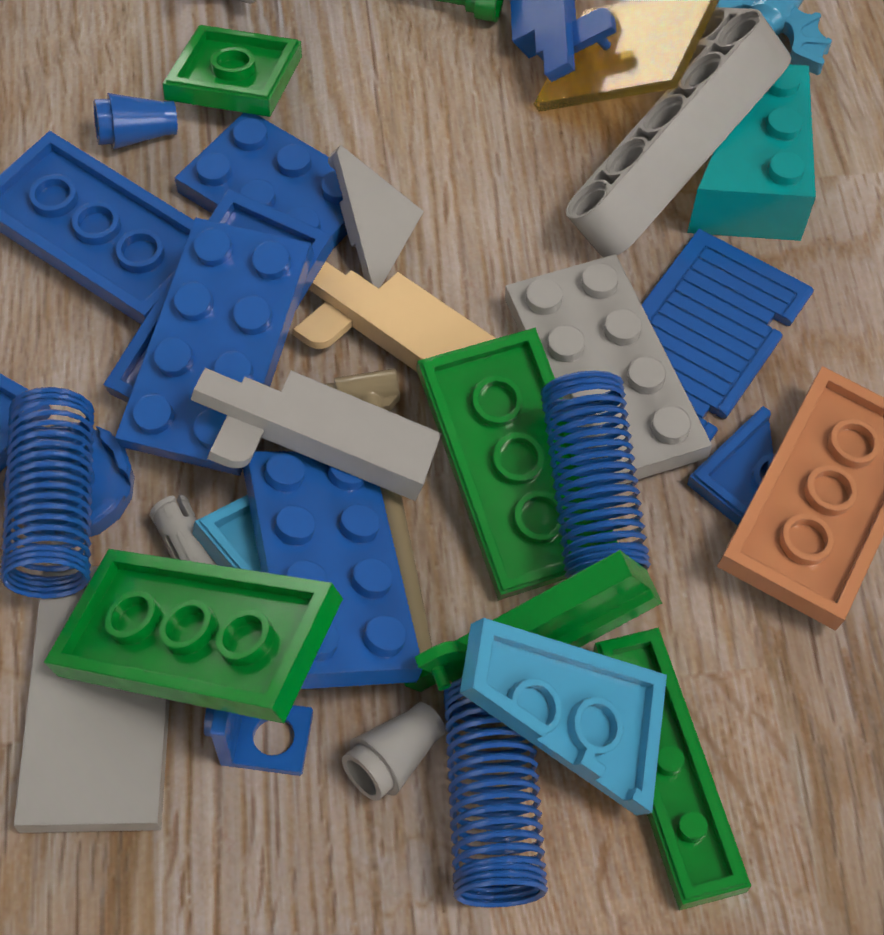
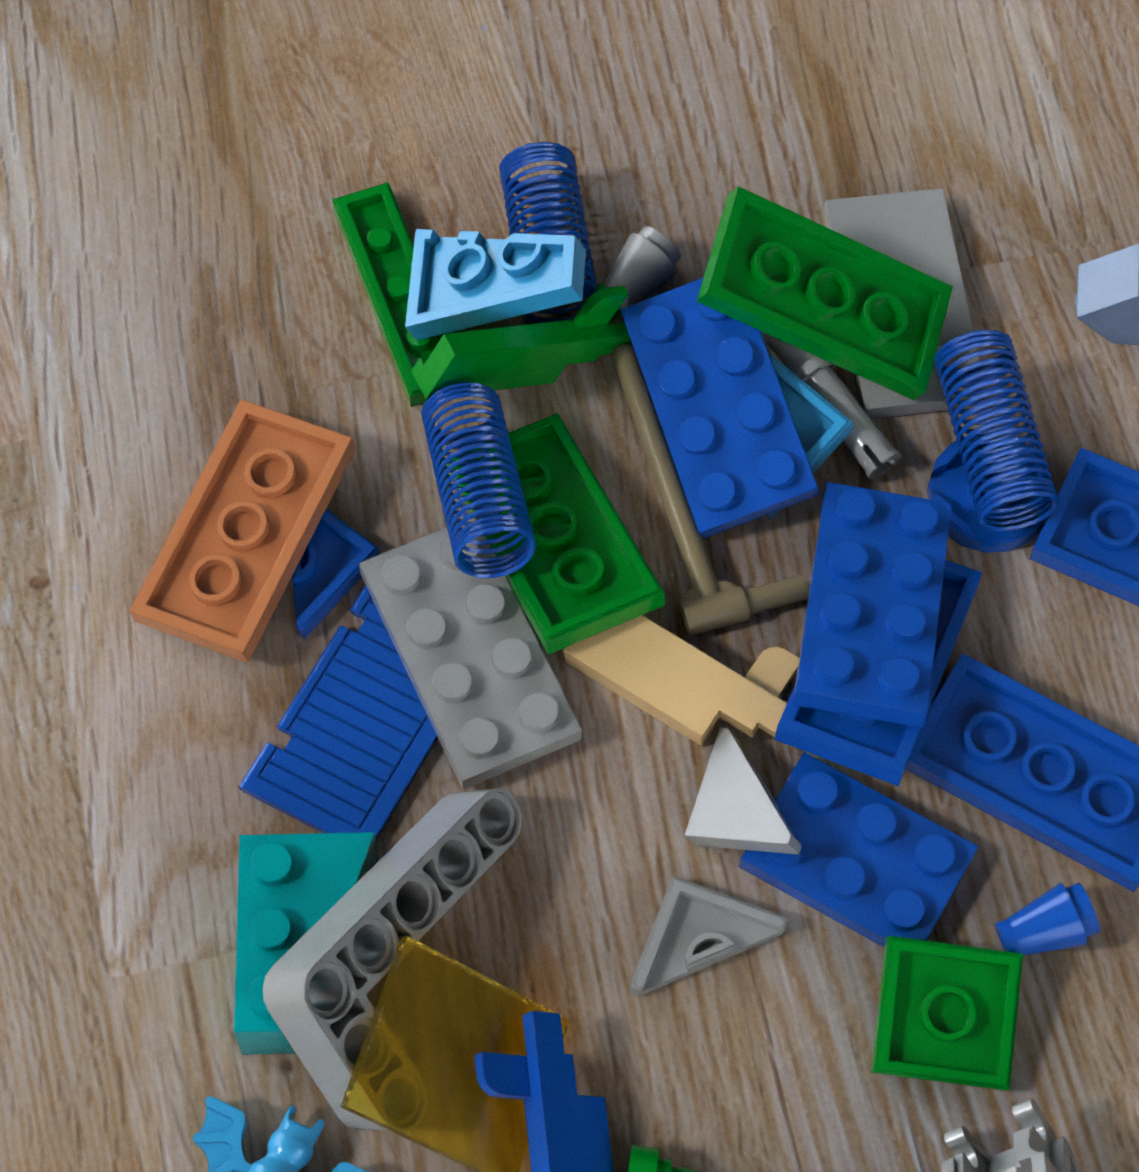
camera: 175 degrees right, 5 degrees up
(319, 425) = (747, 513): light grey piece -> none
(421, 152) = (699, 930): none -> light grey tile

